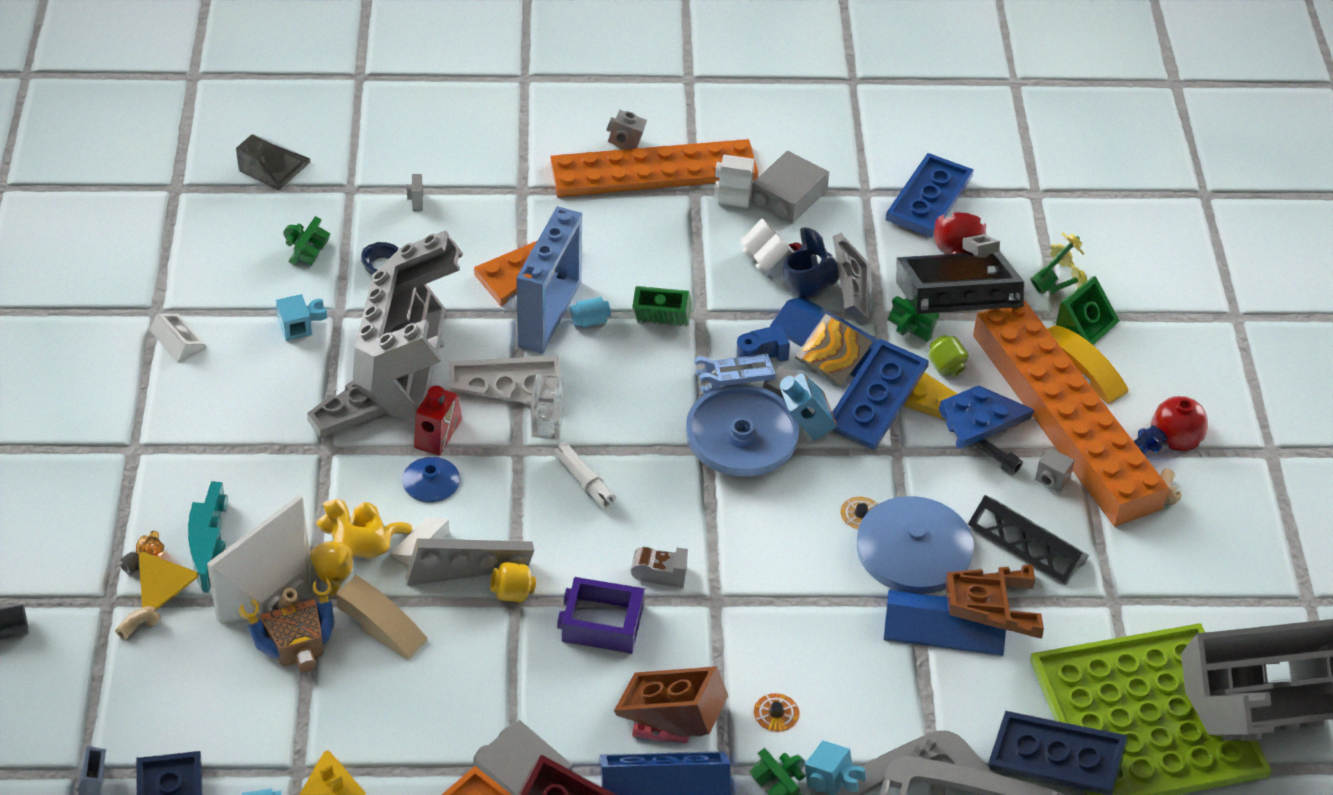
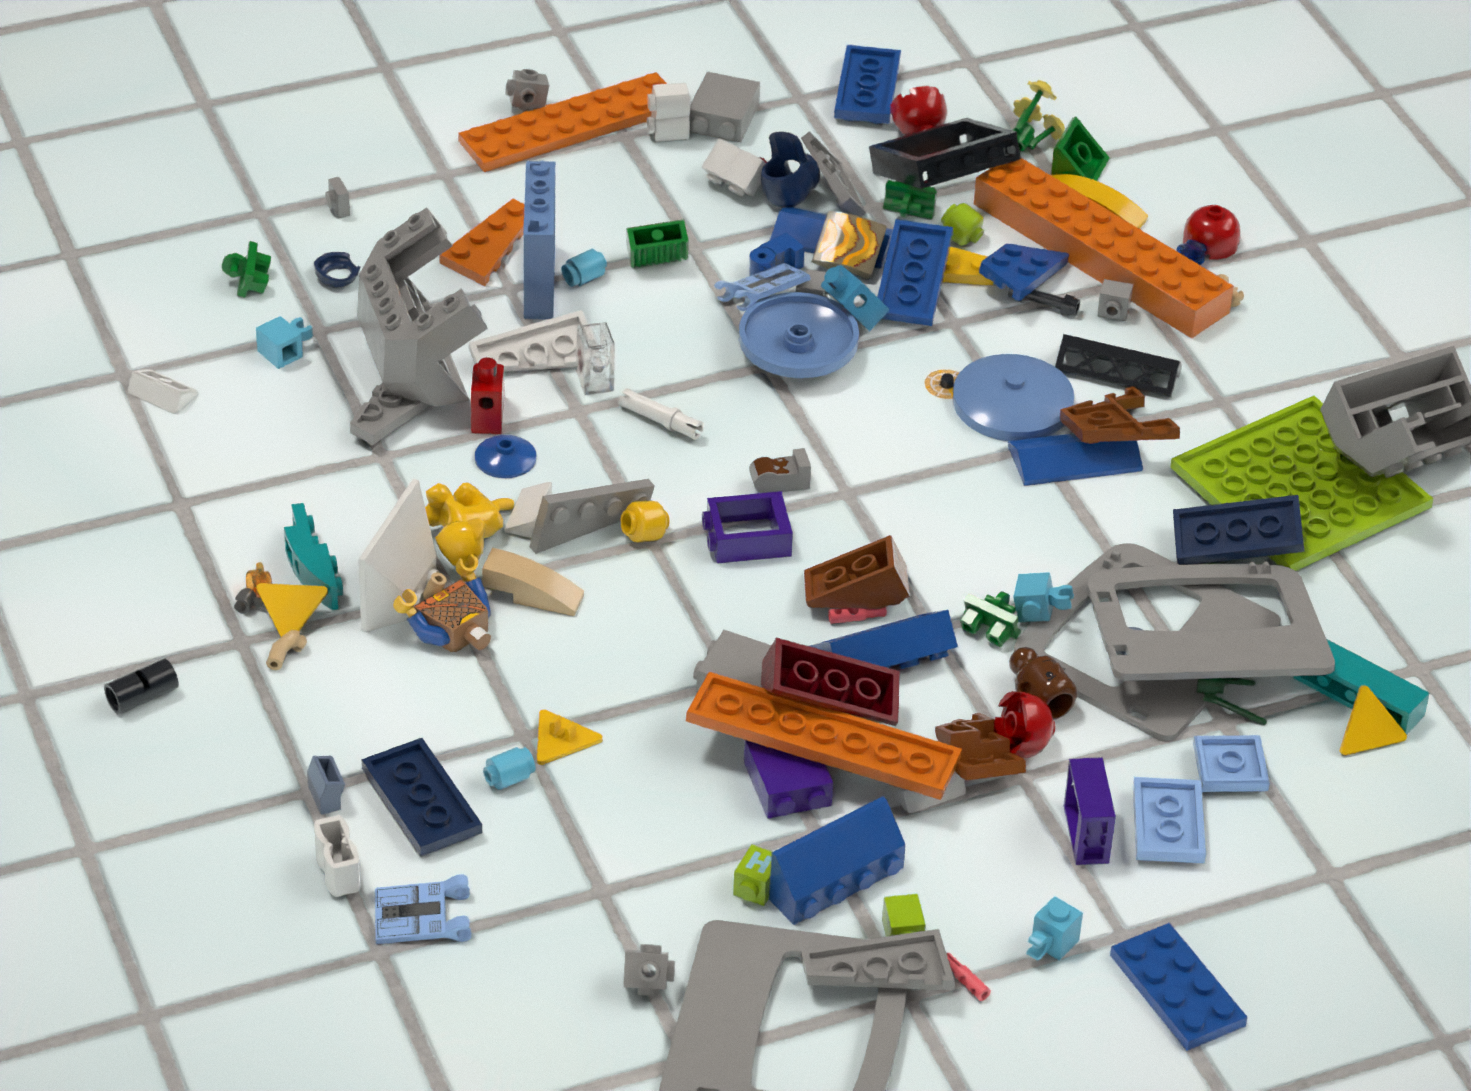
camera: 20 degrees left, 5 degrees down
(269, 161) = (160, 204): clear smoke slope -> none
(776, 712) = (955, 570): clear orange piece -> none
(981, 245) = (950, 114): light grey plate -> none

